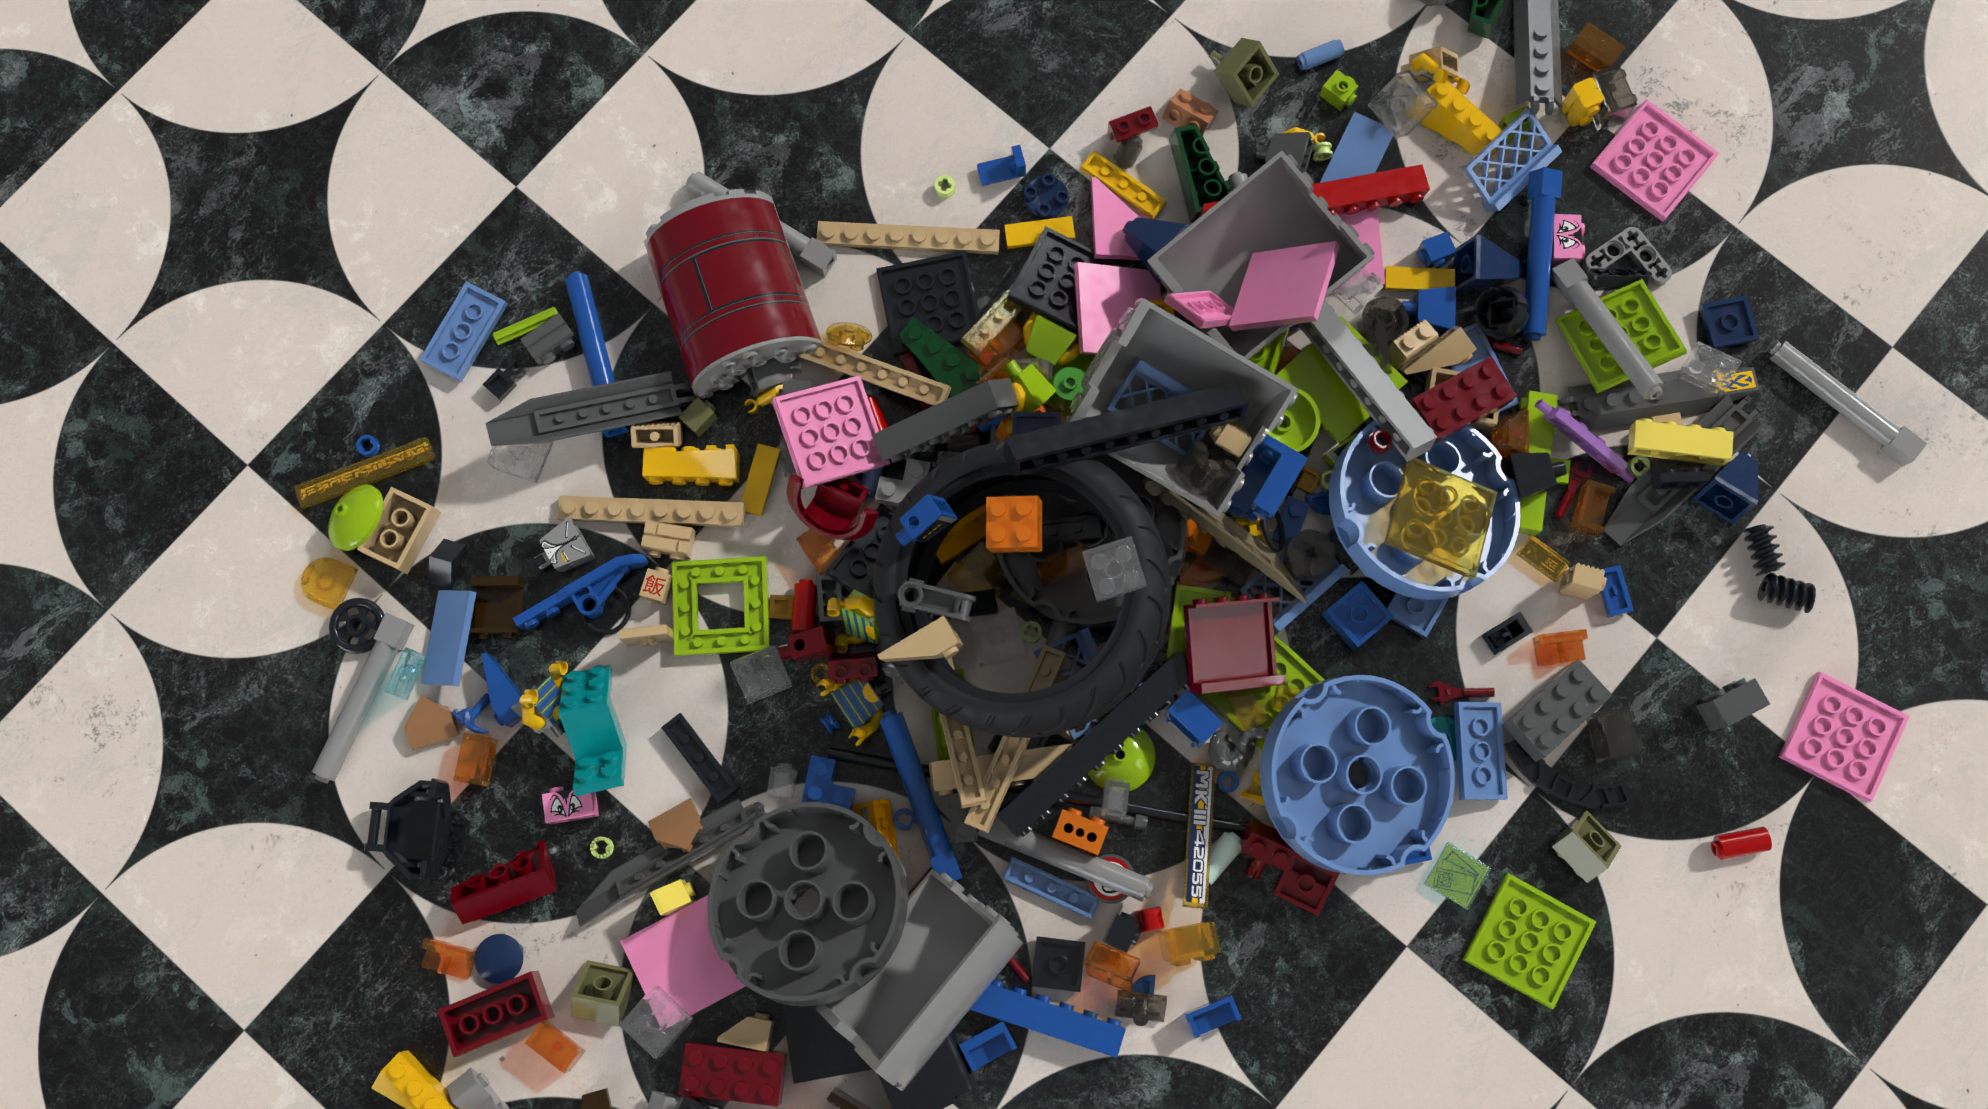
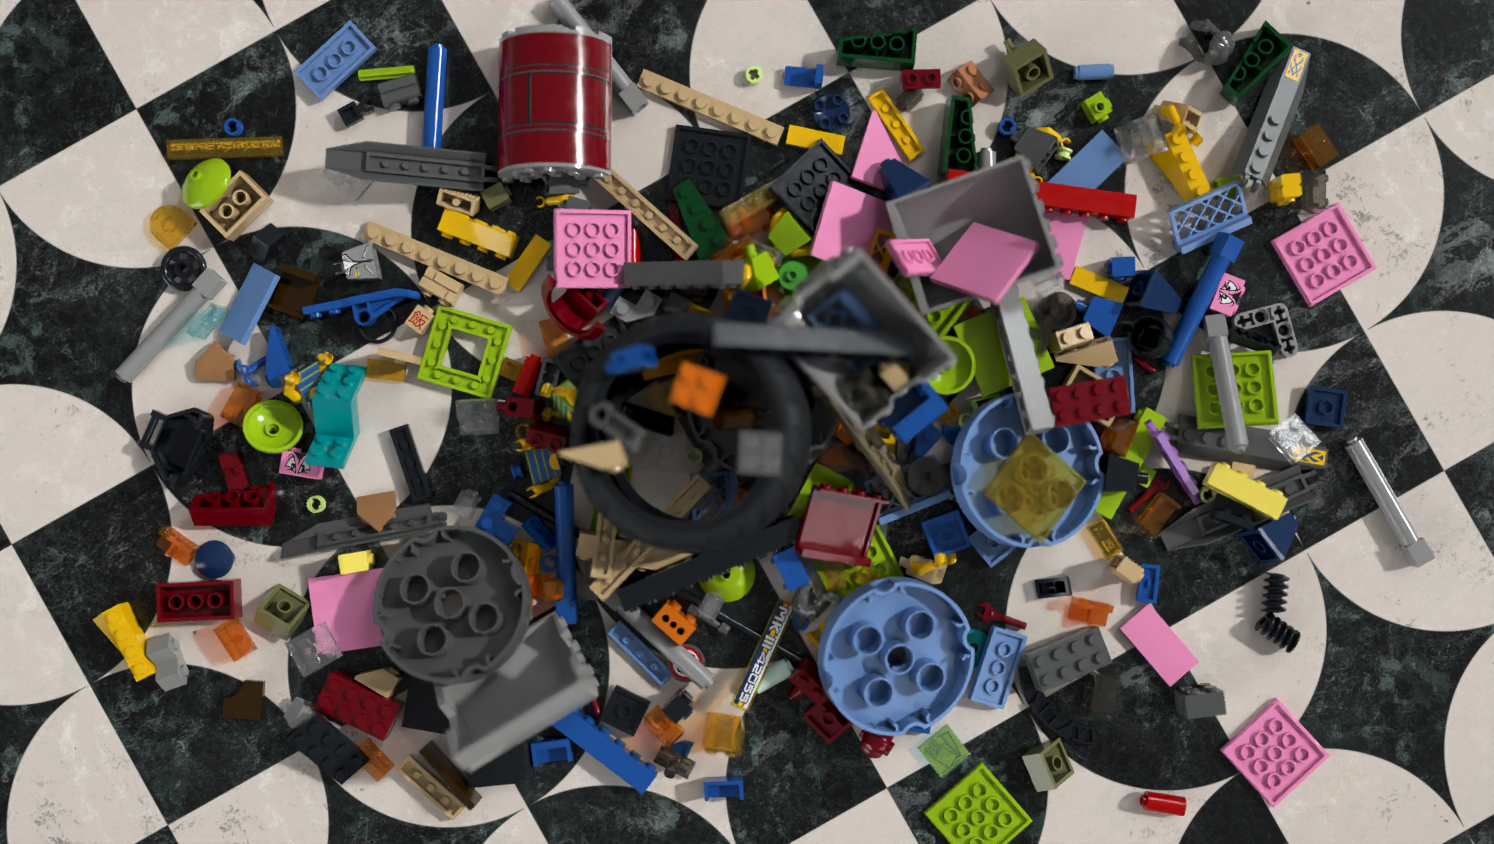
camera: 15 degrees right, 10 degrees up
(489, 842) = (233, 470): none -> dark red plate
(519, 761) = (273, 416): none -> lime dish
(634, 660) = (386, 370): none -> clear yellow tile
(848, 335) = (635, 172): clear yellow dish -> none
(881, 785) = (540, 533): none -> blue plate
(913, 844) = (545, 587): none -> clear orange panel
(1075, 111) = (879, 51): none -> dark green wedge
(1149, 919) = (703, 703): red leg -> none
(1251, 138) = (1001, 124): none -> blue bush
(1352, 662) = (927, 569): none -> torso
(1373, 892) = (875, 744): none -> dark red plant
(1385, 439) = (1015, 412): dark red plate -> none
(1656, 658) = (1158, 644): none -> bright pink tile

